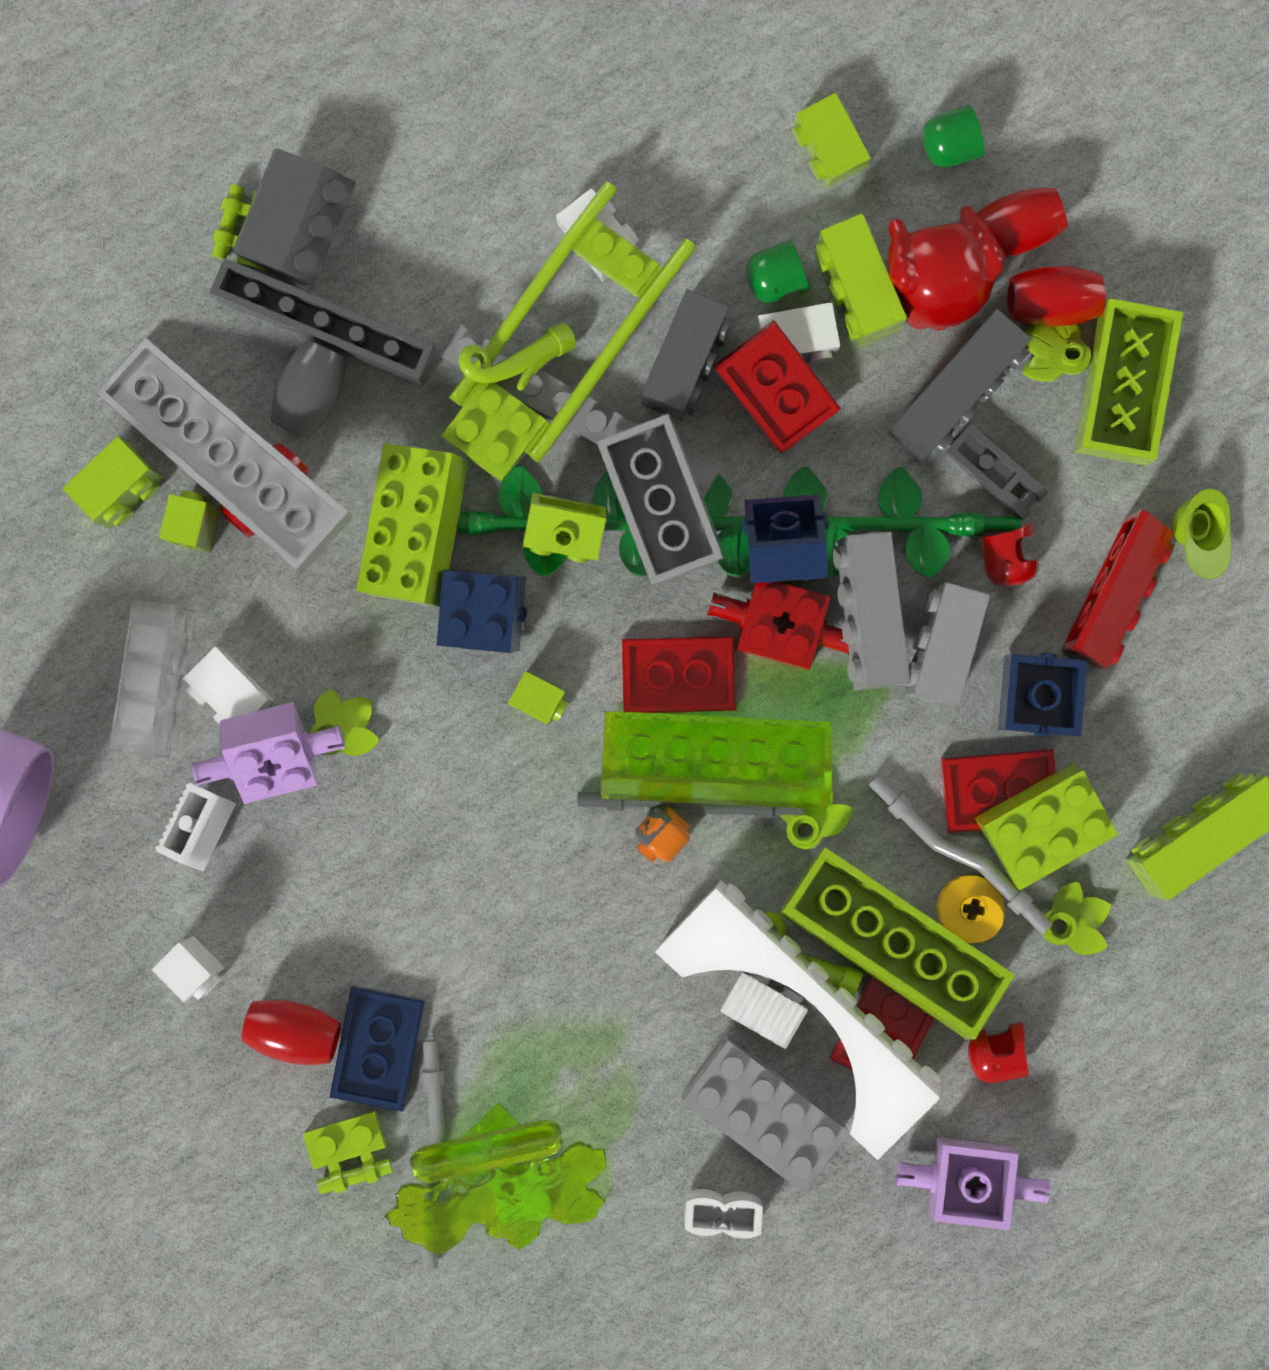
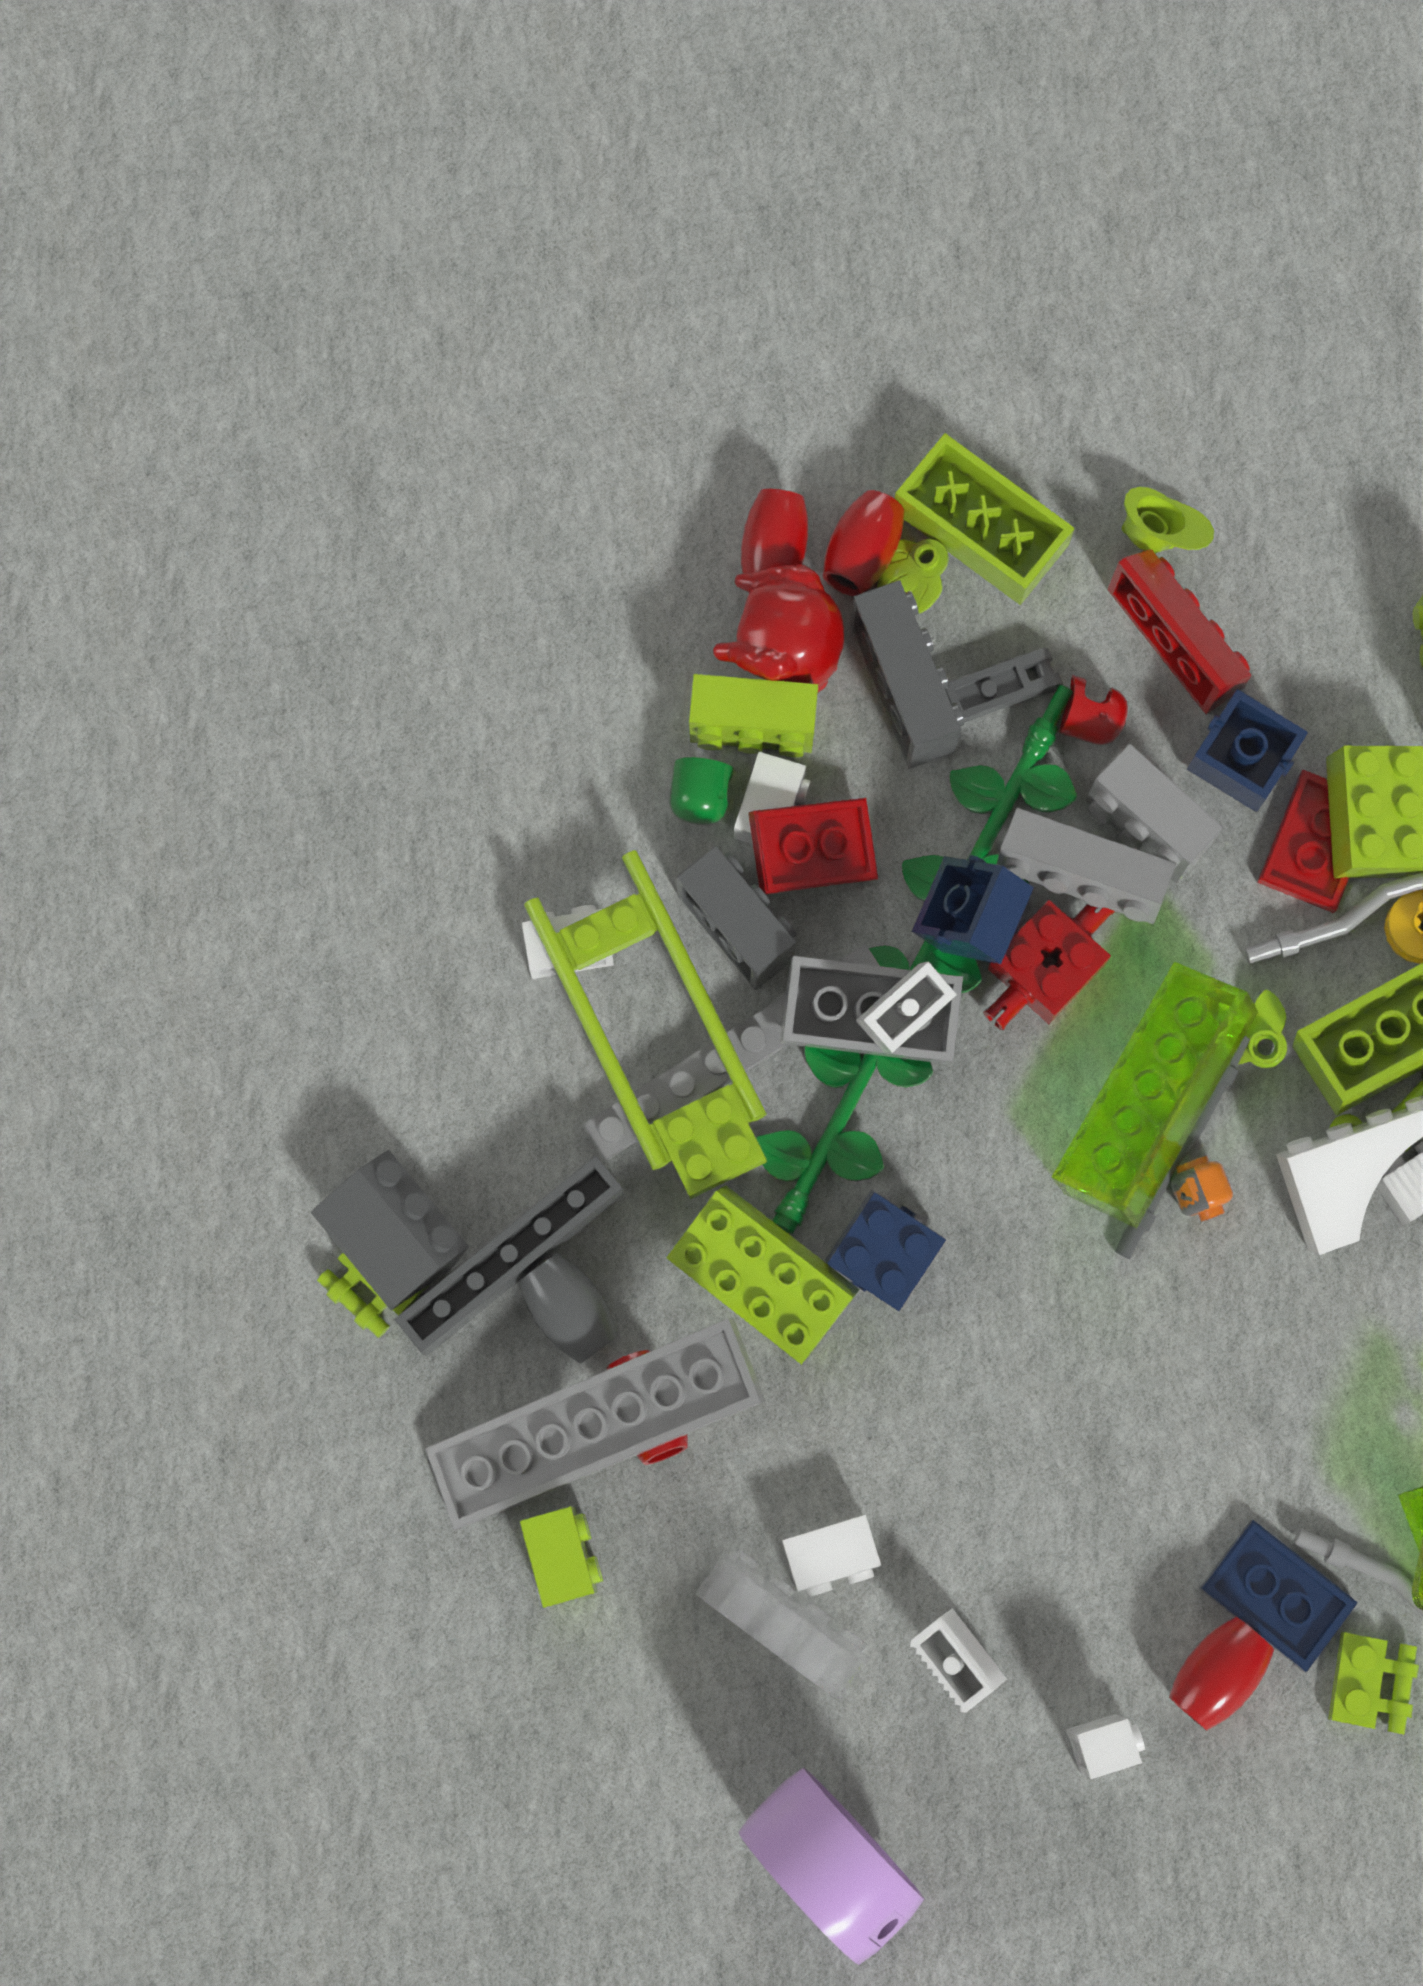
camera: 60 degrees left, 10 degrees down
(189, 521) = (640, 1498): lime brick -> none
(268, 753) = (921, 1542): lavender brick -> none
(352, 717) = (926, 1449): lime plate -> none
(529, 360) = (652, 1040): lime plant -> none
(538, 699) = (1001, 1240): lime brick -> none
(564, 528) = (846, 1121): lime brick -> none
(668, 523) = (906, 1007): none -> white brick
(678, 674) = (1046, 1092): red tile -> none
(831, 141) = (598, 675): lime brick -> none
(953, 137) = (659, 559): green helmet -> none

